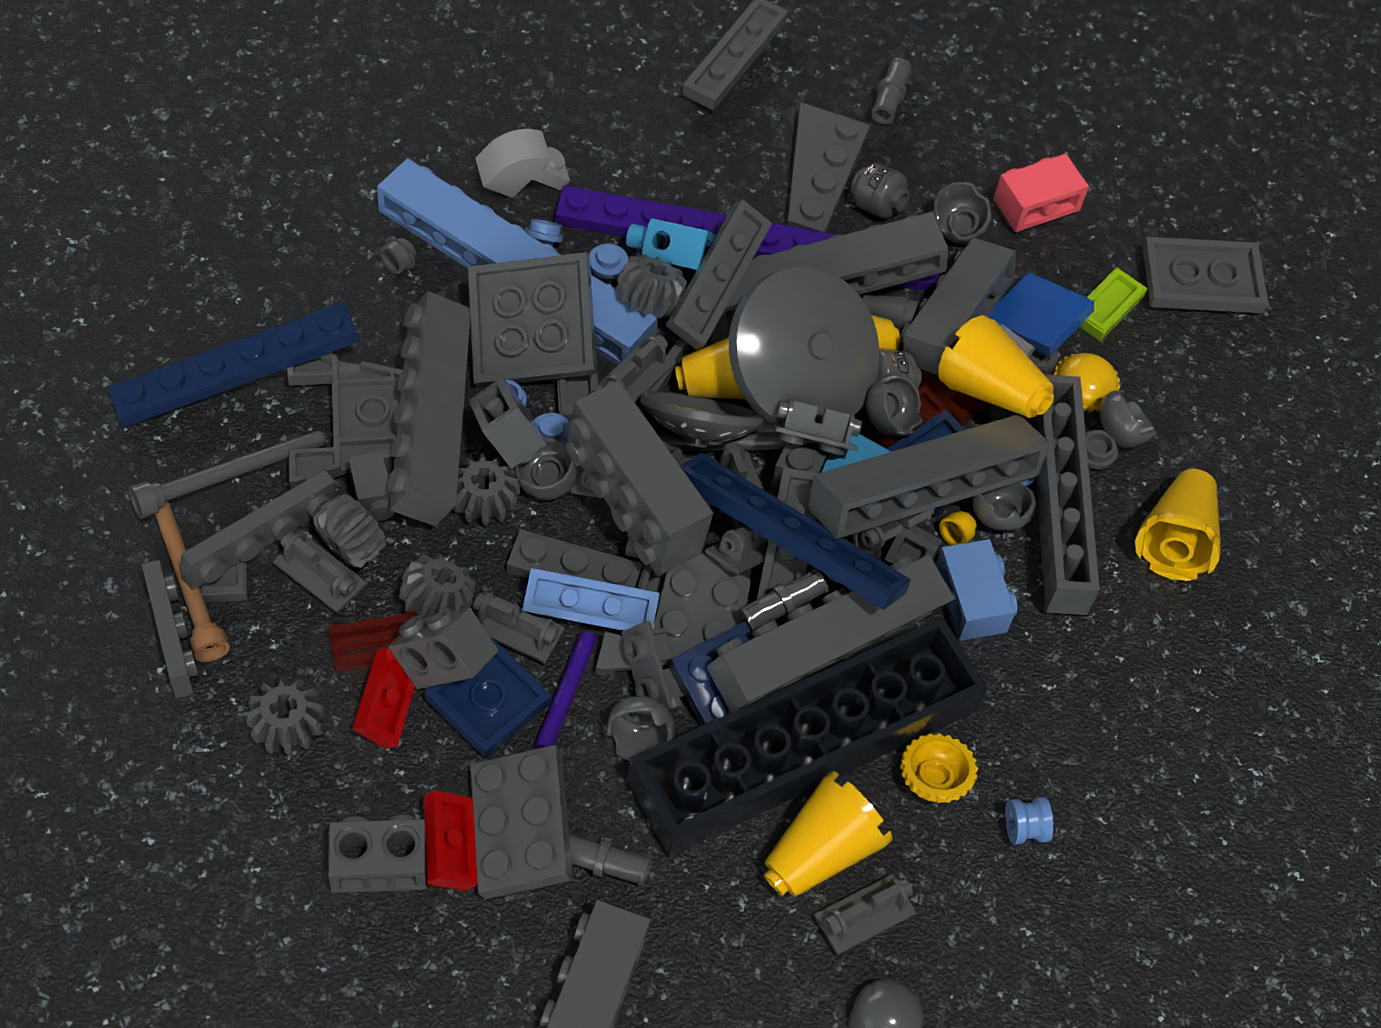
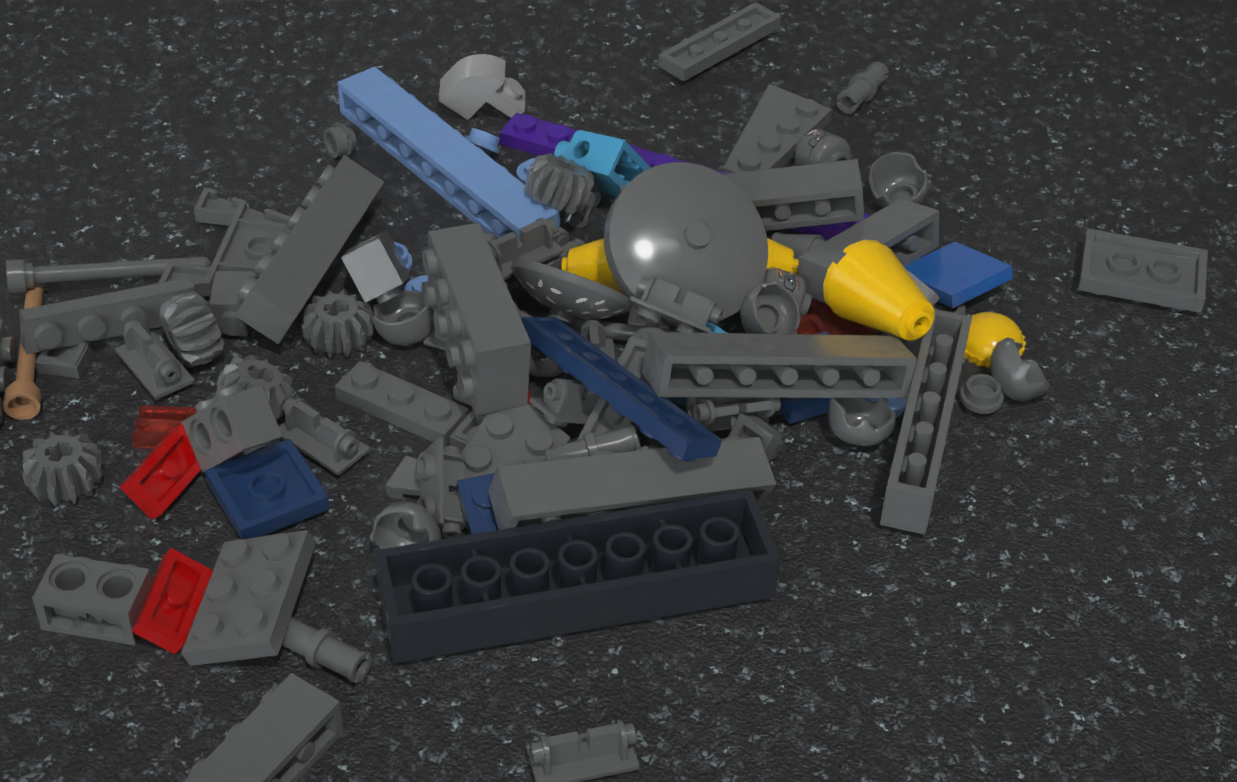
camera: 20 degrees right, 15 degrees down
(233, 364) = (149, 192): dark blue plate -> none
(532, 319) = (436, 189): dark grey plate -> none
(566, 690) = (352, 498): dark purple bar -> none
(588, 600) = (396, 422): medium blue plate -> none
(719, 274) = (590, 209): dark grey plate -> none
(825, 838) = (558, 669): yellow cone -> none
(939, 768) = (709, 635): yellow hat -> none
(958, 528) = (807, 434): yellow hinge -> none
(980, 594) = (807, 487): medium blue brick -> none
(1029, 820) = (794, 702): medium blue wheel -> none
(1040, 192) = (985, 178): coral brick -> none
(1112, 302) = (1036, 281): lime tile -> none
(1183, 528) = (1048, 470): yellow cone -> none

